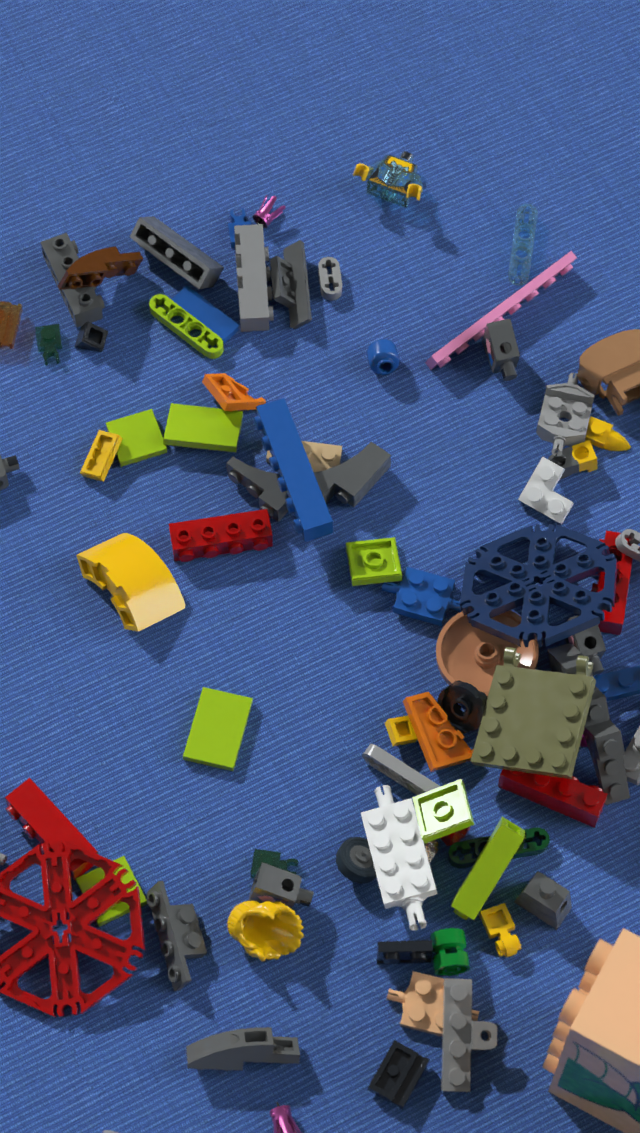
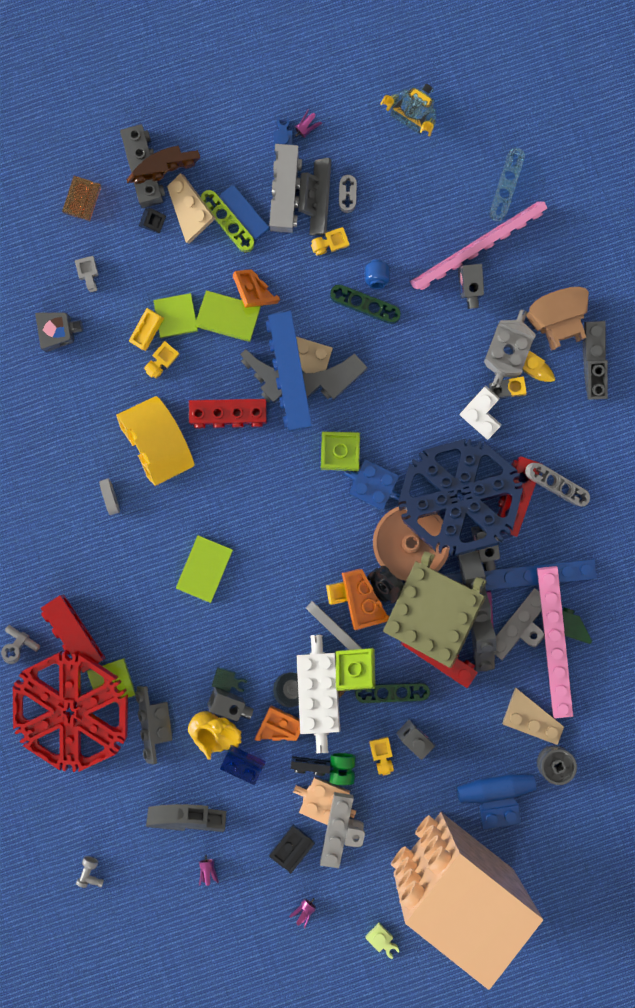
camera: 10 degrees right, 25 degrees up
(18, 400) = (87, 271): none -> light grey plate
(49, 341) = (118, 218): clear green plate -> none
(79, 656) = (109, 496): none -> light grey beam
(127, 483) = (165, 356): none -> yellow plate
(137, 317) = (189, 208): none -> tan wing
(176, 252) = (227, 154): dark grey brick -> none
(310, 969) = (242, 765): none -> clear blue plate
(324, 327) = (335, 241): none -> yellow plate
(352, 912) = (279, 726): none -> orange wing
(375, 389) = (364, 306): none -> dark green beam
(488, 869) = (382, 713): lime slope -> none

